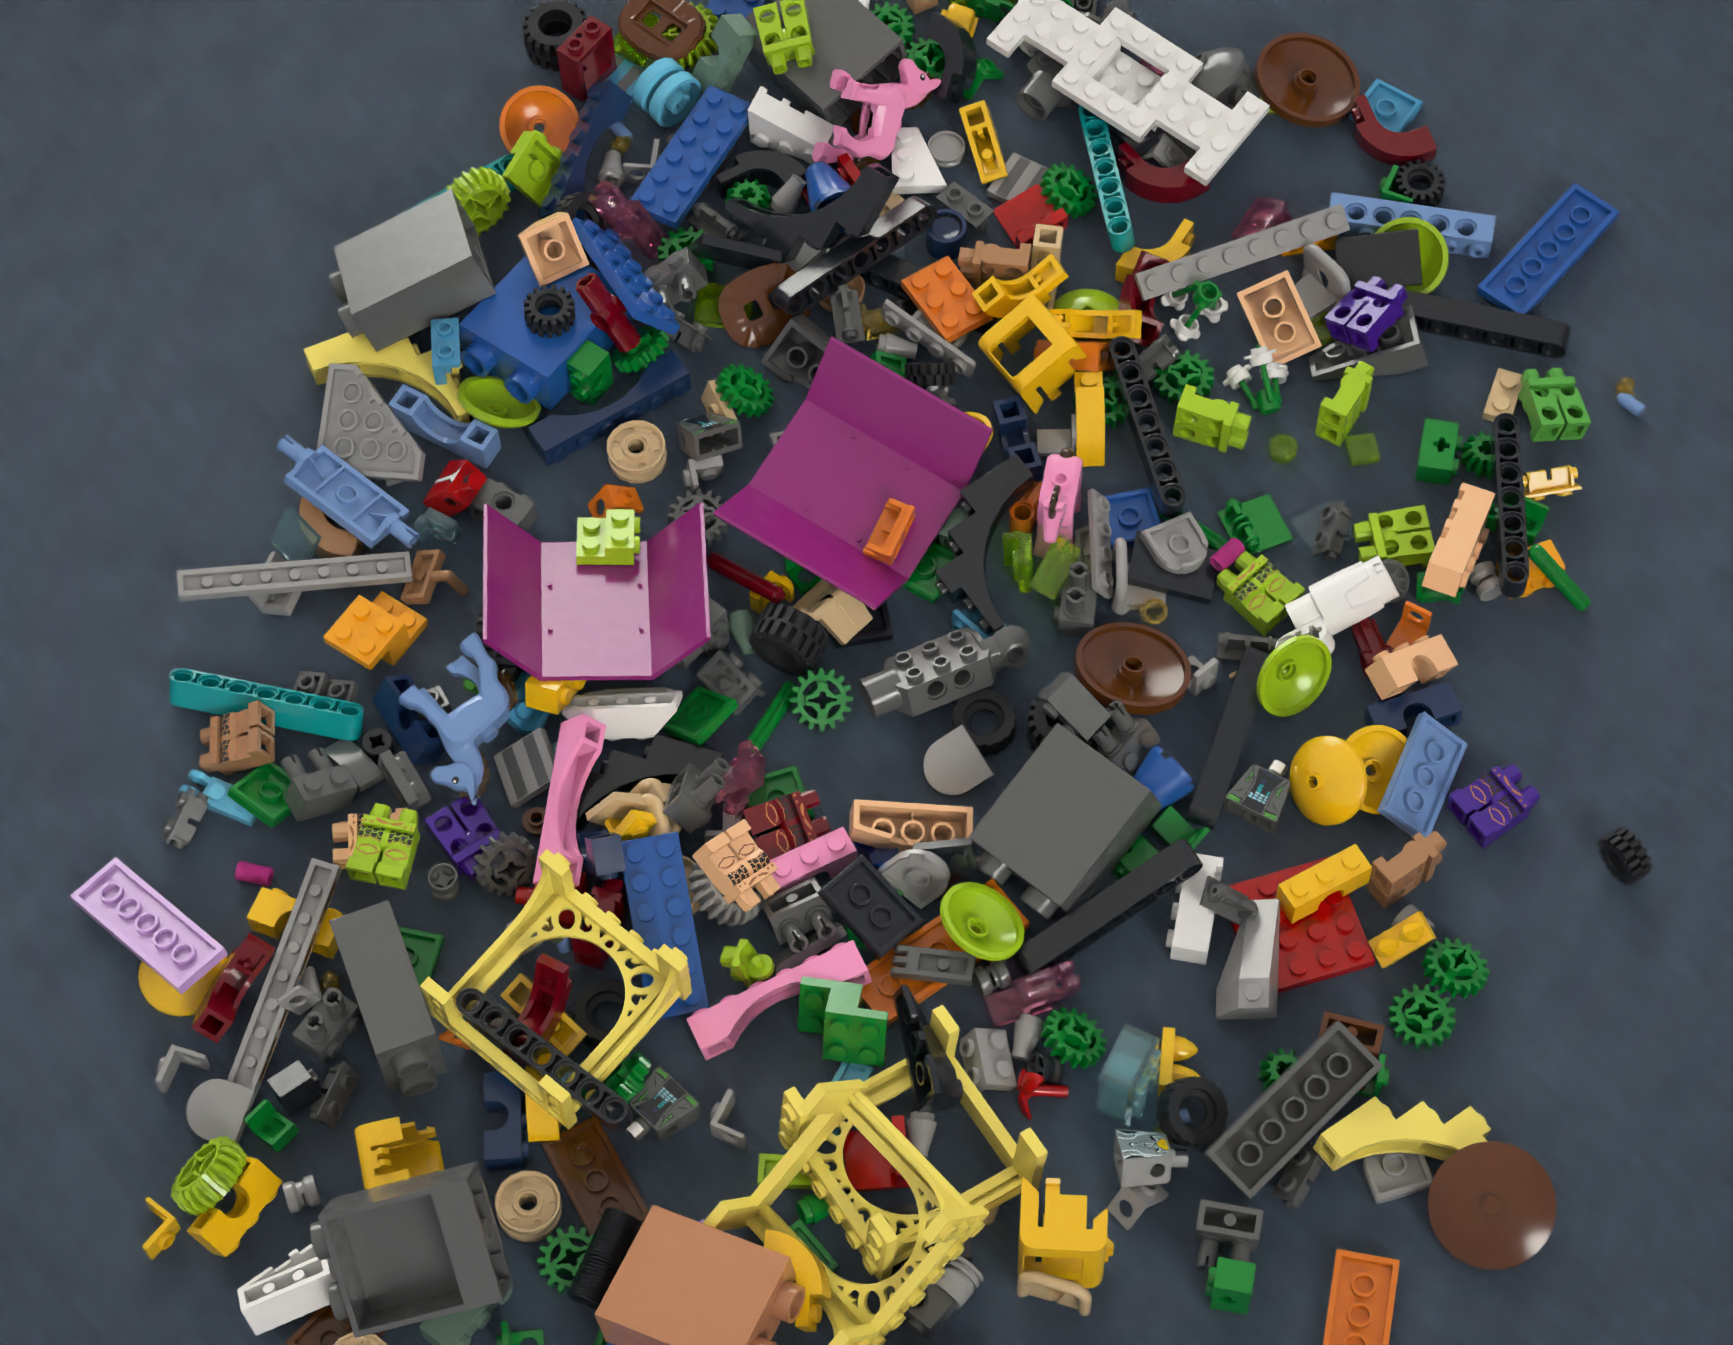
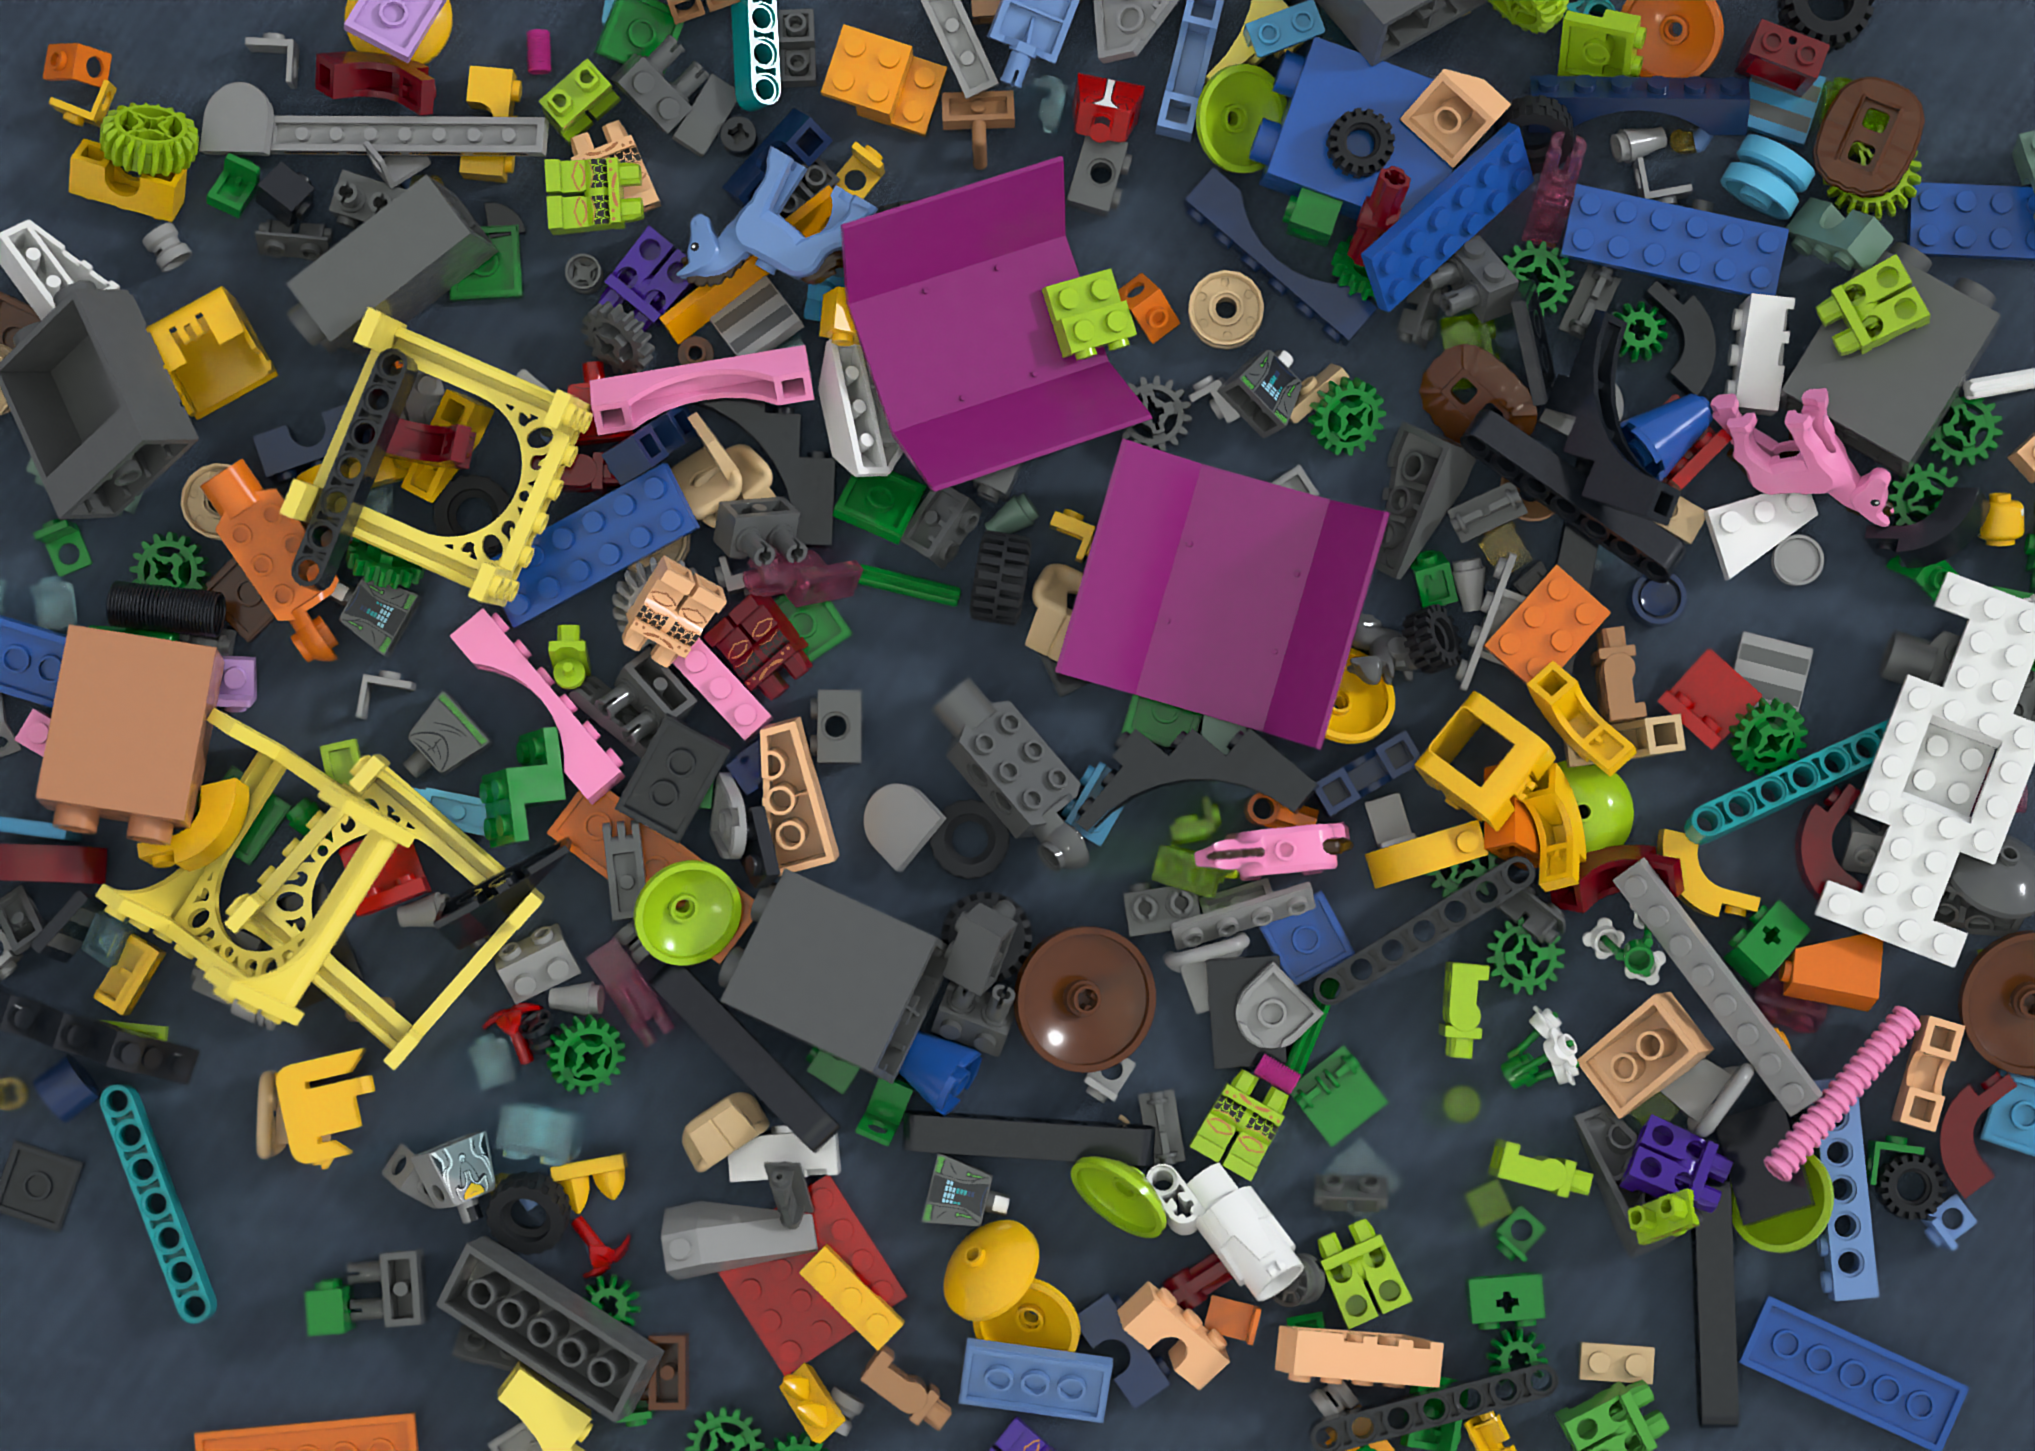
camera: 70 degrees right, 25 degrees up
(118, 1231) = (69, 62): none -> orange bracket
(303, 836) = (579, 91): none -> lime hips
(404, 780) = (697, 183): dark grey bracket -> none
(433, 662) = (866, 161): none -> yellow bracket
(496, 794) = (706, 301): none -> light orange tile
(589, 1163) = (265, 550): none -> orange brick
(633, 826) = (691, 464): yellow bracket -> none
(745, 578) = (1074, 499): dark red axle -> none
(777, 1073) = (444, 738): none -> dark grey torso
(787, 197) = (1652, 380): light grey cone -> none
(820, 685) = (940, 638): green gear -> none
(856, 778) = (841, 704): none -> dark grey brick
(890, 531) = (1180, 655): orange hinge -> none
(968, 205) = (1706, 611): dark grey hinge -> none
(983, 141) = (1812, 608): yellow slope -> none
(1058, 1117) = (492, 1061): none -> clear light blue bracket
(1148, 604) = (1181, 993): clear yellow bush -> none
(1164, 937) = (723, 1129): none -> tan piece
(1217, 221) = (1766, 943): none -> green brick
(1241, 1068) = (599, 1254): none -> red plant
(1253, 185) = (1836, 972): none -> orange slope
(1321, 145) = (1931, 1053): none -> light nougat arch
(1339, 192) = (1842, 1093): none -> bright pink piece
(1397, 437) = (1508, 1244): none -> green bracket
(1403, 316) = (1664, 1217): none -> lime hips
(1457, 171) = (1938, 1233): none -> medium blue bracket

